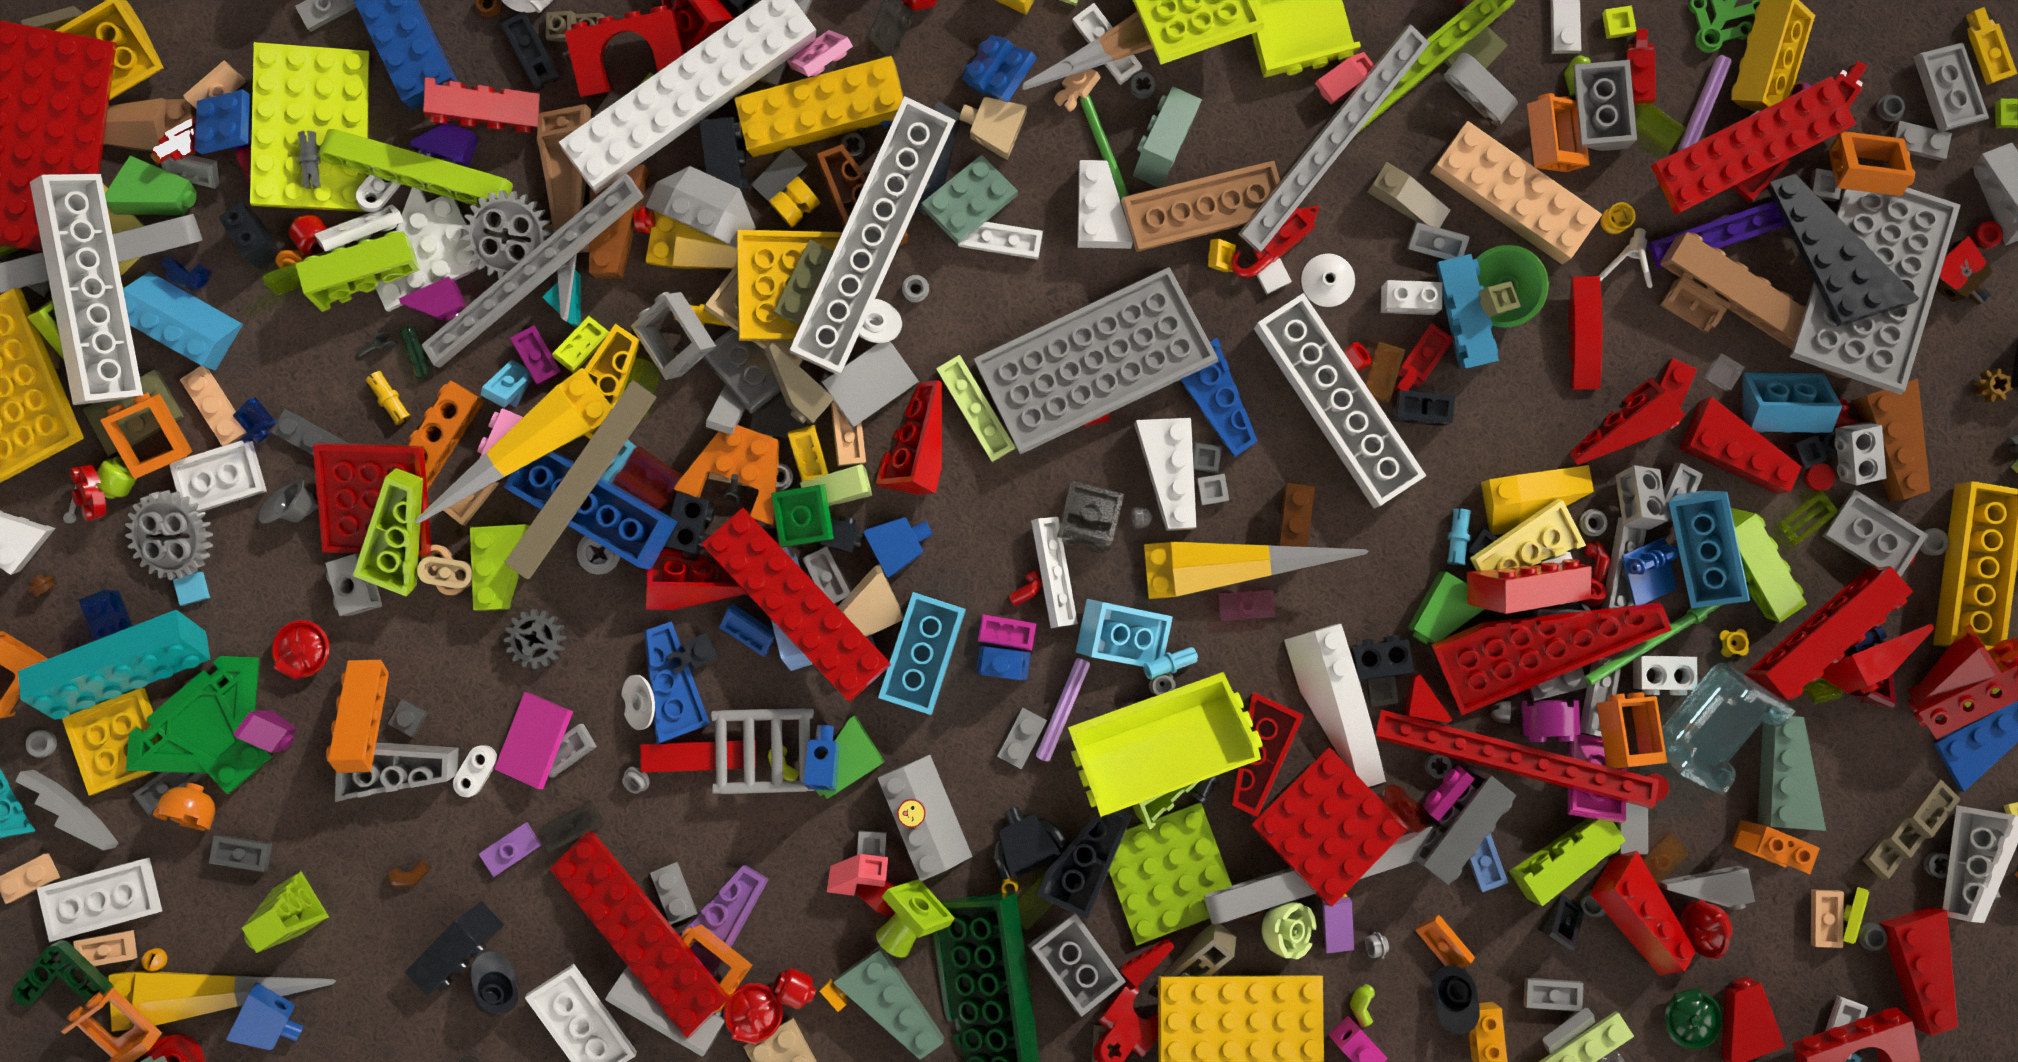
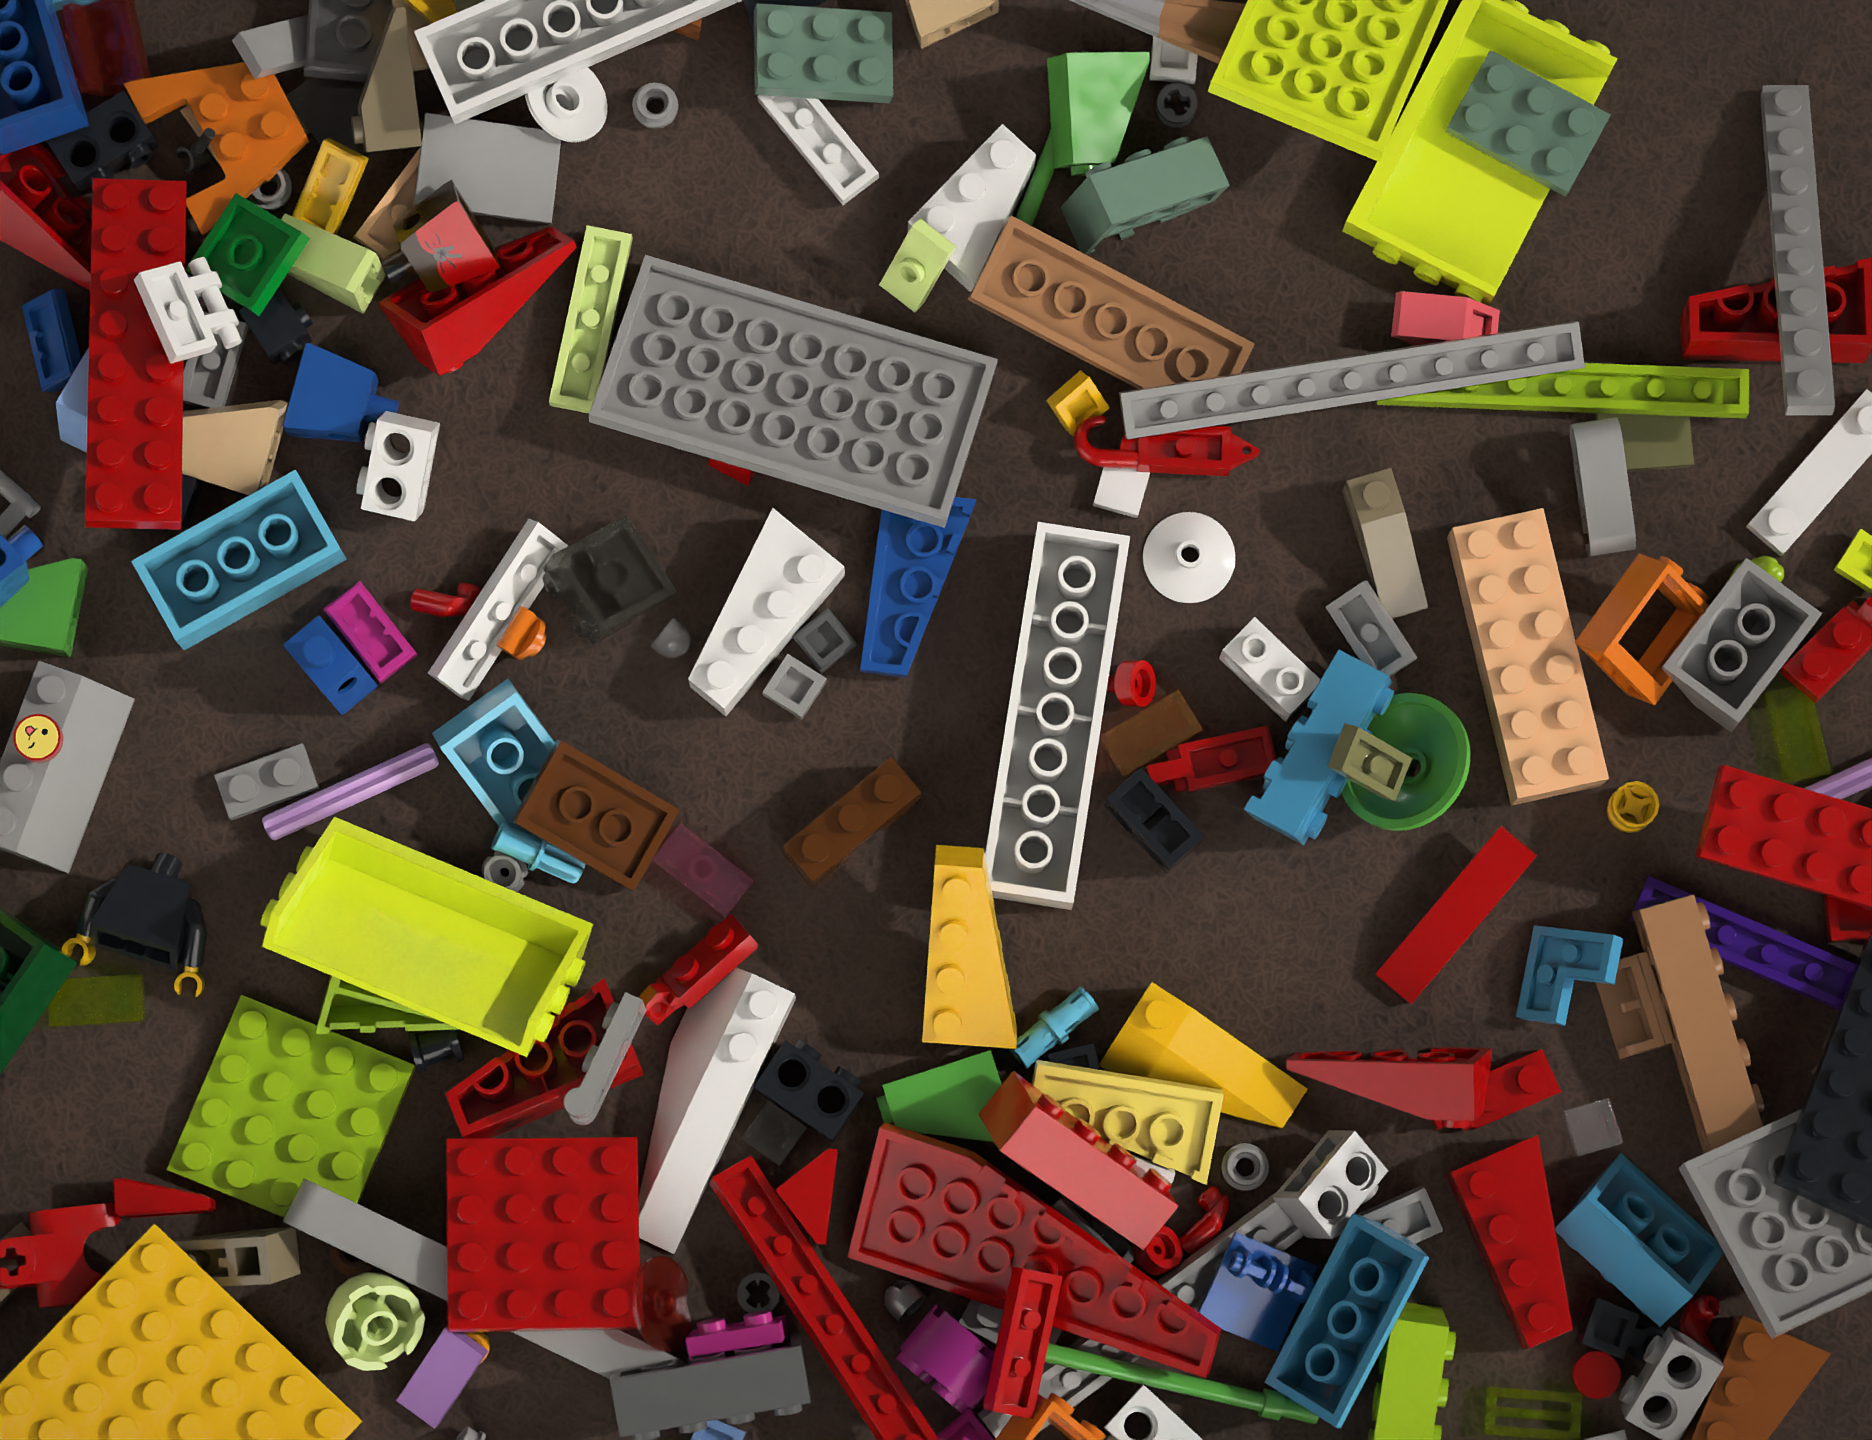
camera: 40 degrees right, 5 degrees down
(799, 570) = (177, 312): none -> white plate
(880, 434) = (440, 242): none -> torso
(956, 547) = (409, 468): none -> white brick
(1076, 85) = (1091, 31): light nougat plate -> none
(1076, 573) = (523, 635): none -> orange plate
(1076, 964) = (68, 1118): light grey slope -> none
(1083, 867) = (190, 1007): black wedge -> none
(1099, 256) = (917, 265): none -> yellowish green plate
(1110, 118) = (1092, 105): none -> bright green slope
(1181, 624) = (595, 815): none -> reddish brown plate
(1194, 567) = (683, 763): yellow plate -> none
(1286, 650) = (699, 969): none -> red hinge
(1291, 729) = (604, 1061): none -> light grey plate
(1401, 543) = (966, 967): none -> yellow wedge
(1582, 686) = (1022, 1342): none -> red plate
(1636, 250) = (1621, 871): white plant -> none
(1647, 311) = (1554, 963): none -> dark azure plate

